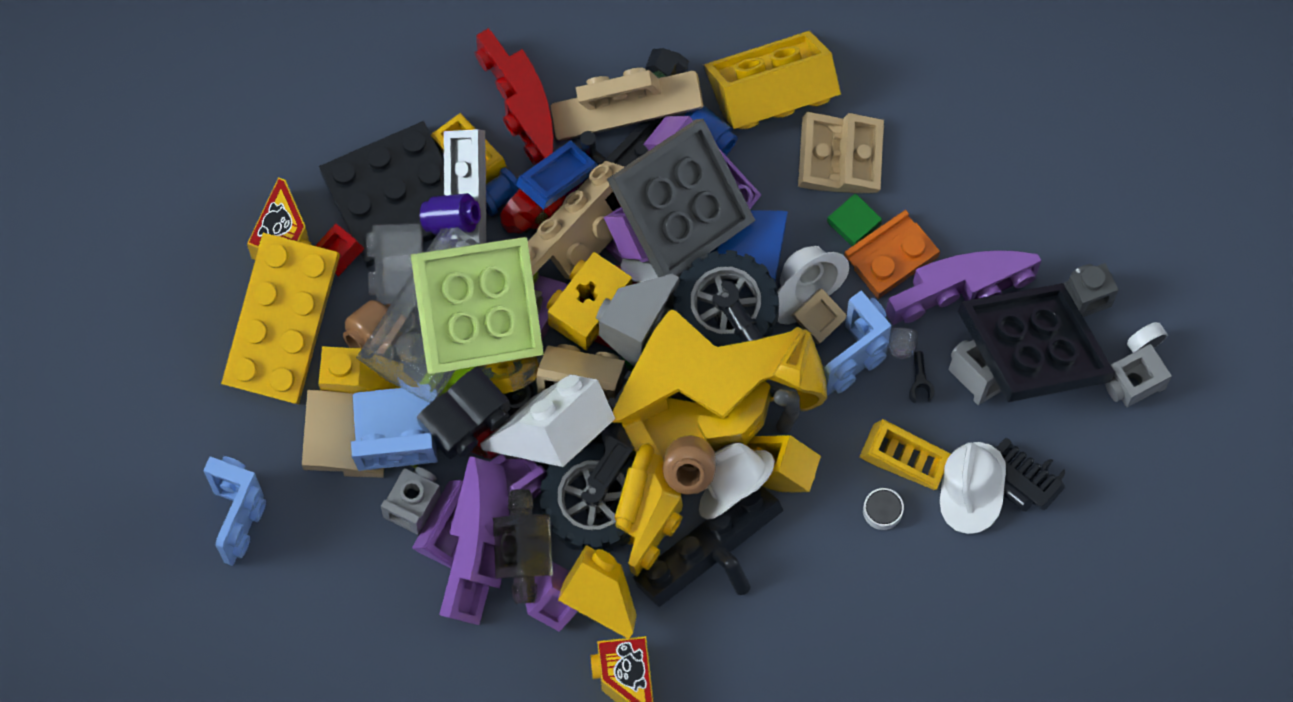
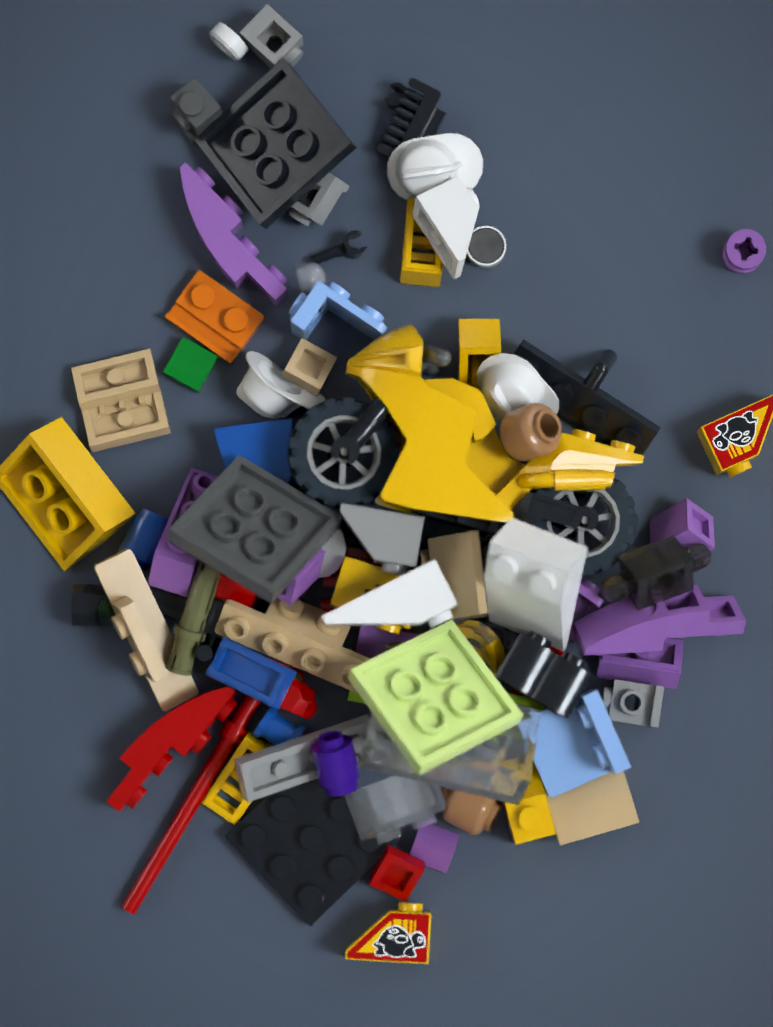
camera: 110 degrees left, 15 degrees up
(232, 481) = (682, 880): light blue bracket -> none
(280, 318) = (492, 901): yellow plate -> none
(349, 291) = (435, 847): none -> medium lavender slope
(512, 154) = (232, 733): none -> red bar
(571, 307) = (405, 601): none -> white slope
(600, 591) = (677, 483): yellow slope -> none
(611, 136) = (193, 620): none -> olive pin
(913, 473) = (448, 220): none -> white slope

